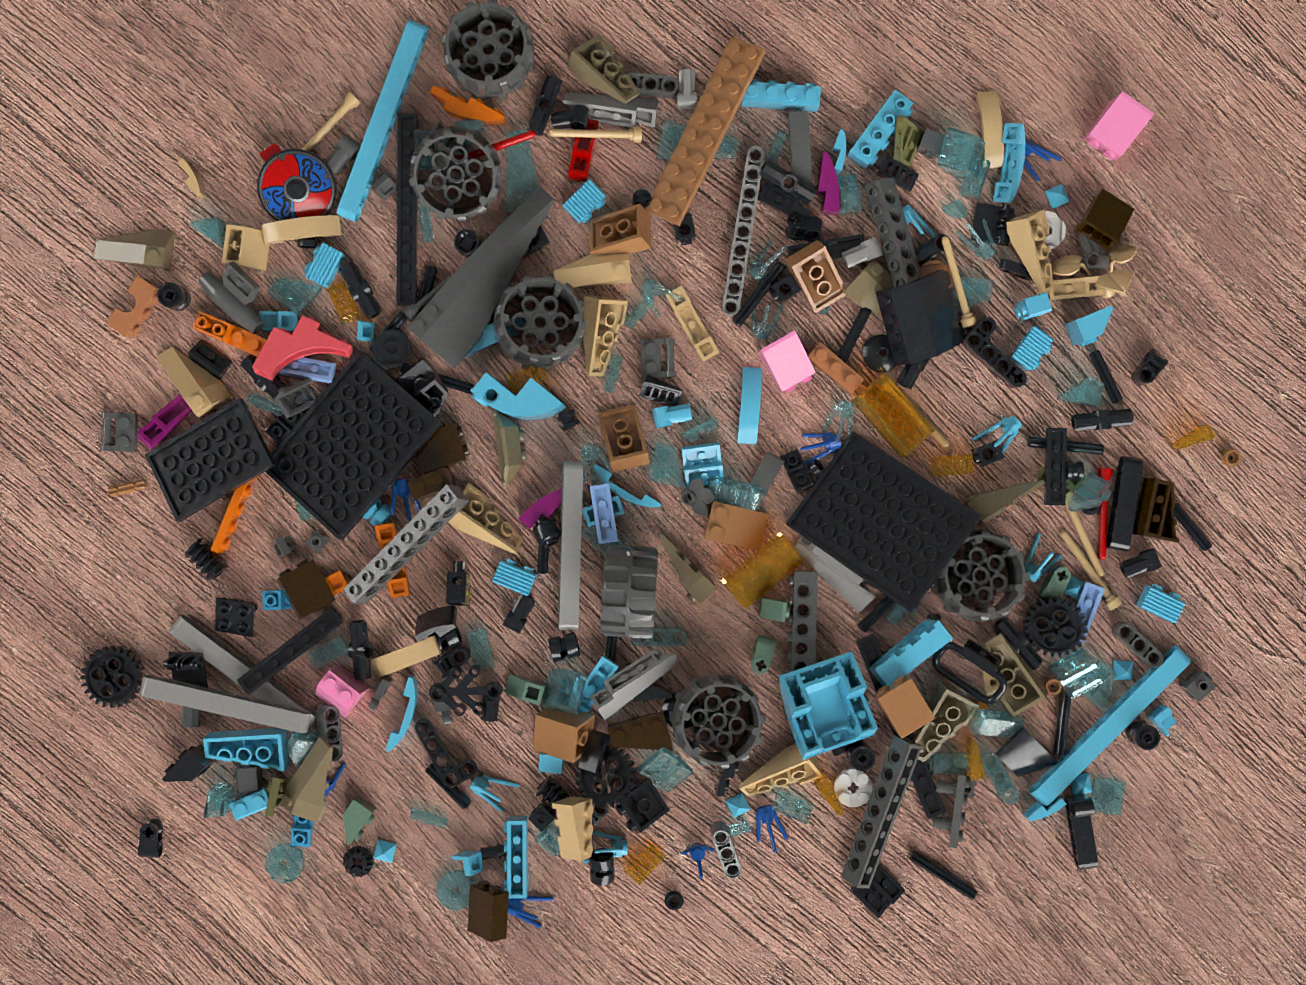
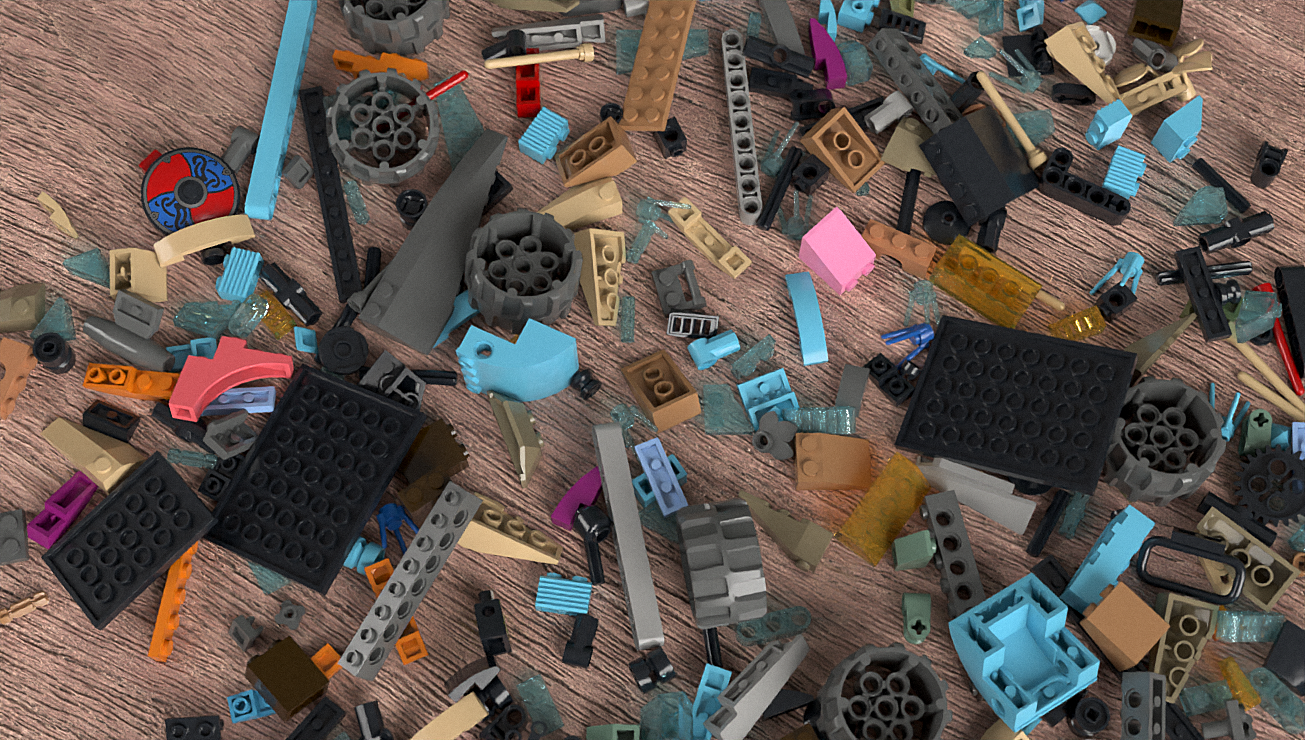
camera: 10 degrees left, 20 degrees down
(179, 271) = (57, 320): none -> clear light blue slope
(205, 560) = (141, 675): black piece -> none
(326, 303) = (248, 315): none -> clear light blue beam
(349, 103) = (239, 92): tan piece -> none
(548, 94) = (472, 35): black piece -> none
(646, 501) = (711, 460): medium azure slope -> none

